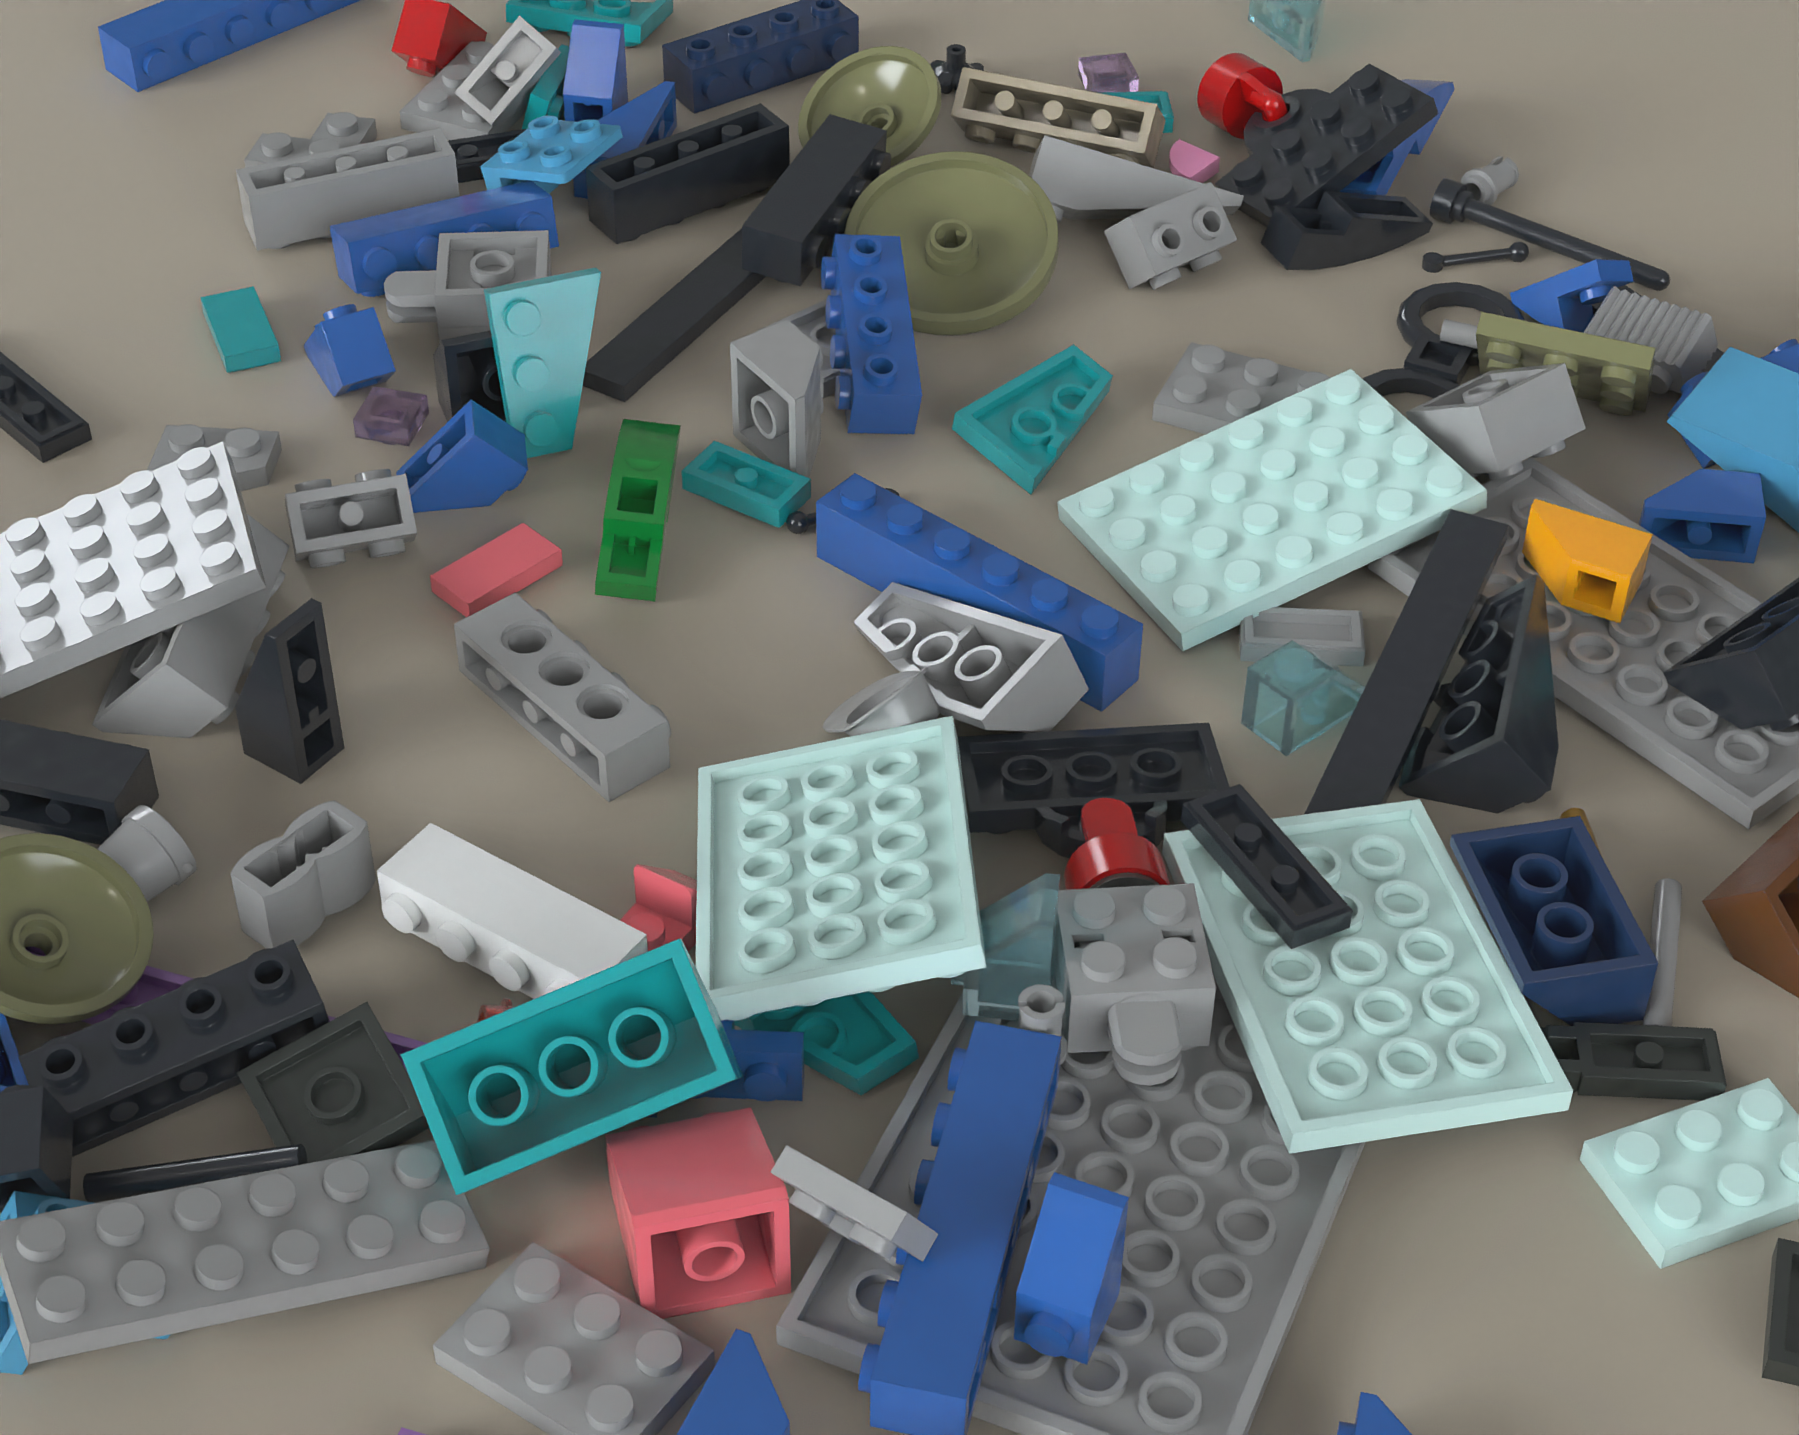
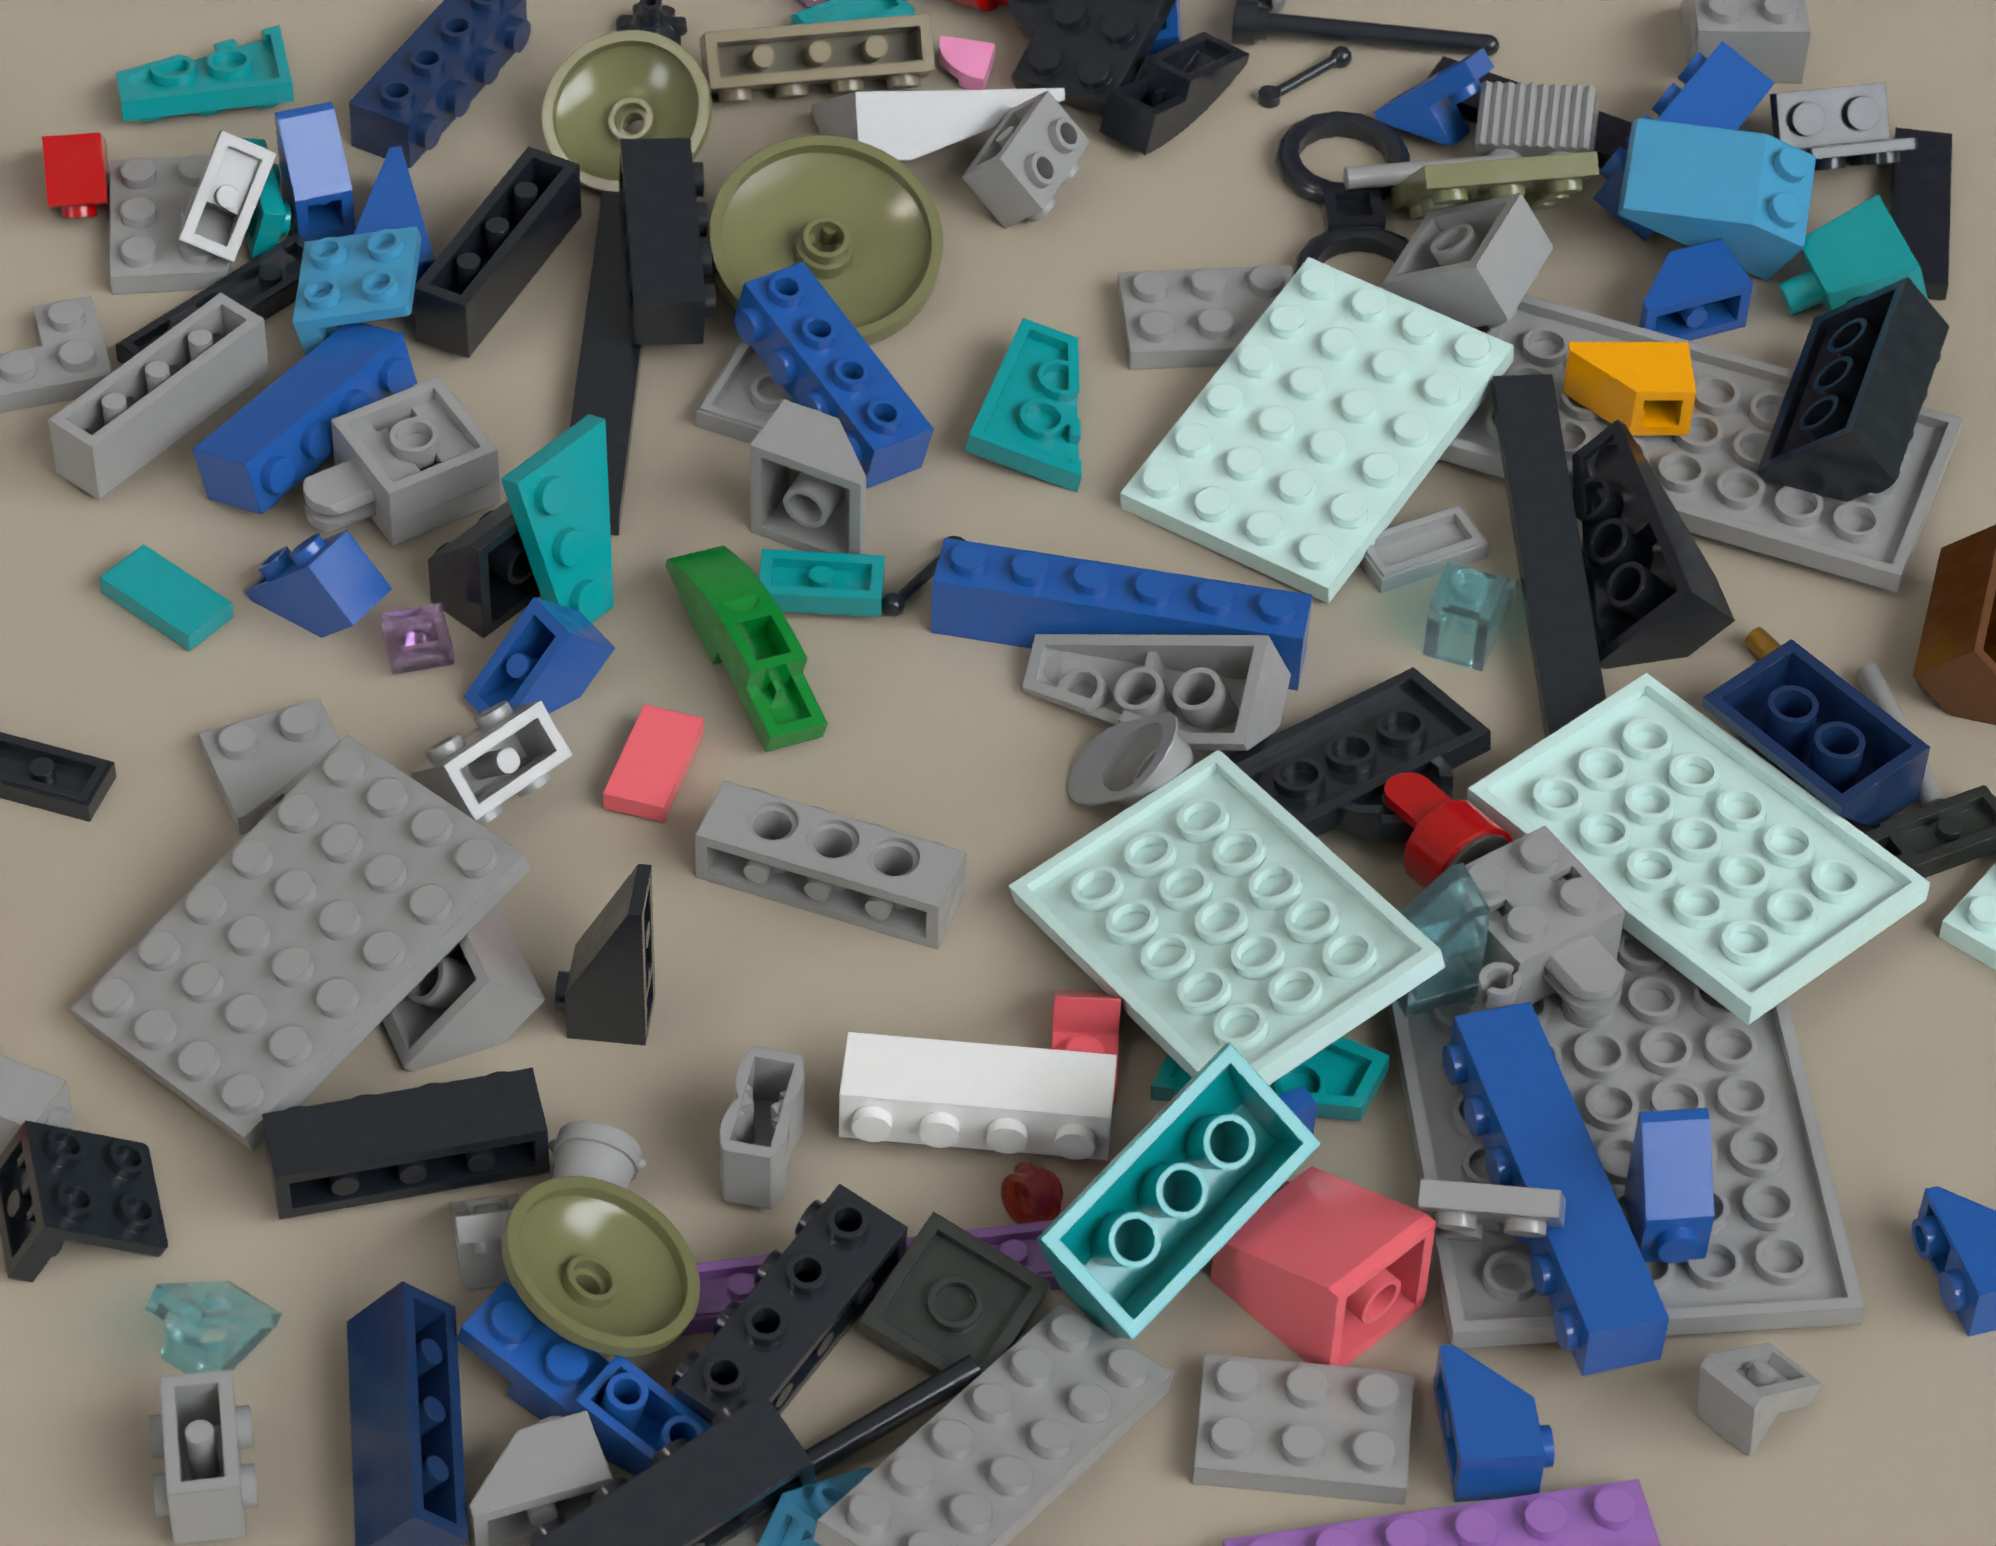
camera: 30 degrees left, 5 degrees up
(1266, 866) = (1574, 784): black tile -> none

